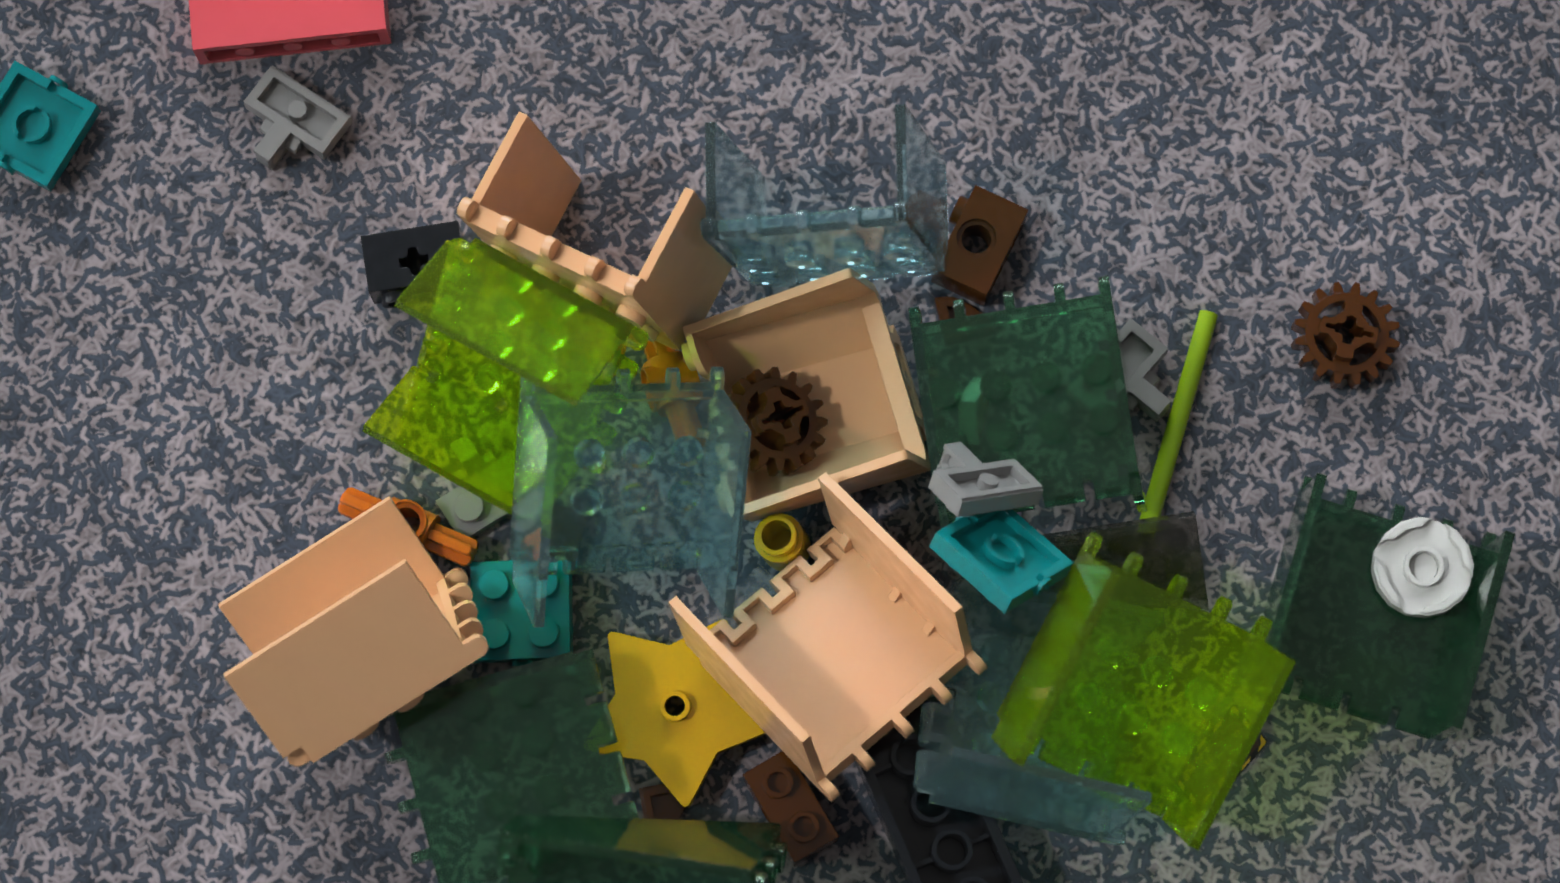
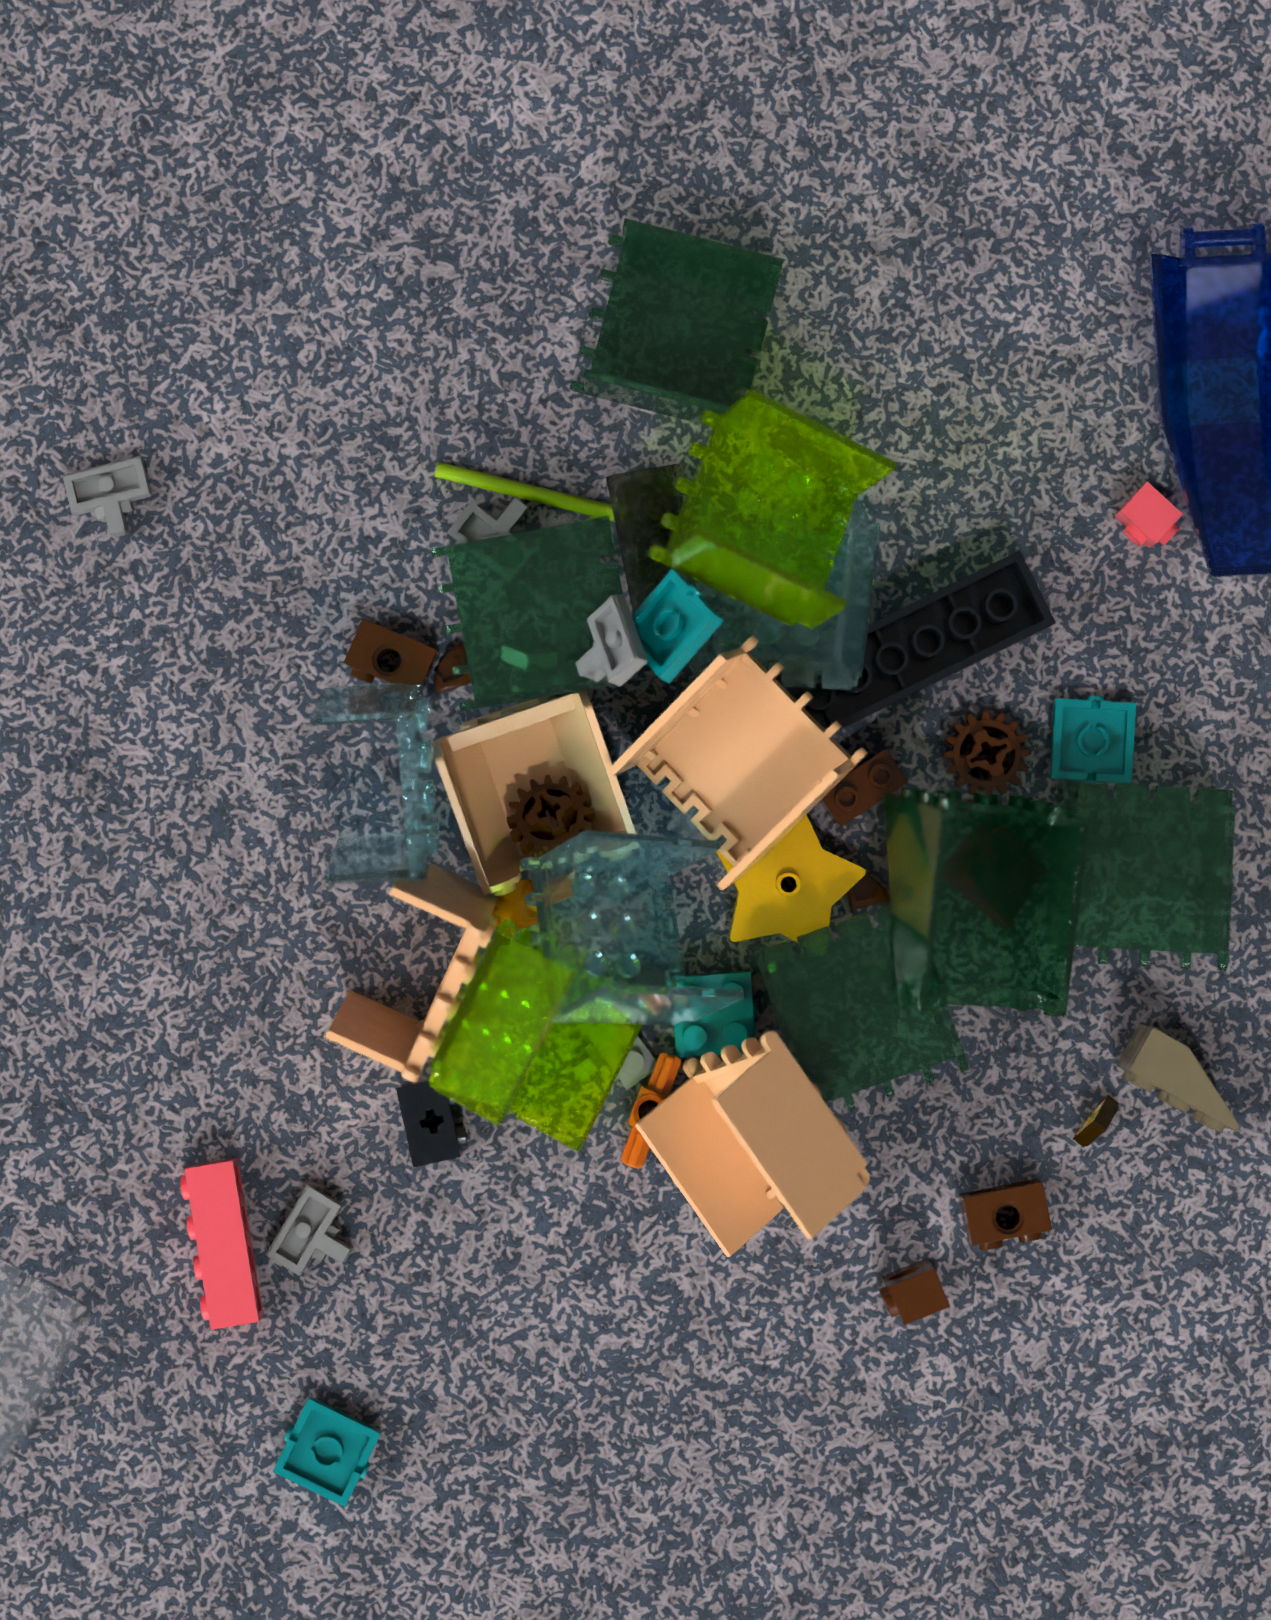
camera: 95 degrees left, 10 degrees up
(153, 834) = (913, 1292): none -> reddish brown brick
(781, 540) = (649, 806): yellow brick -> none
(1325, 332) = (469, 359): reddish brown gear -> none
(1422, 567) = (642, 293): white tile -> none

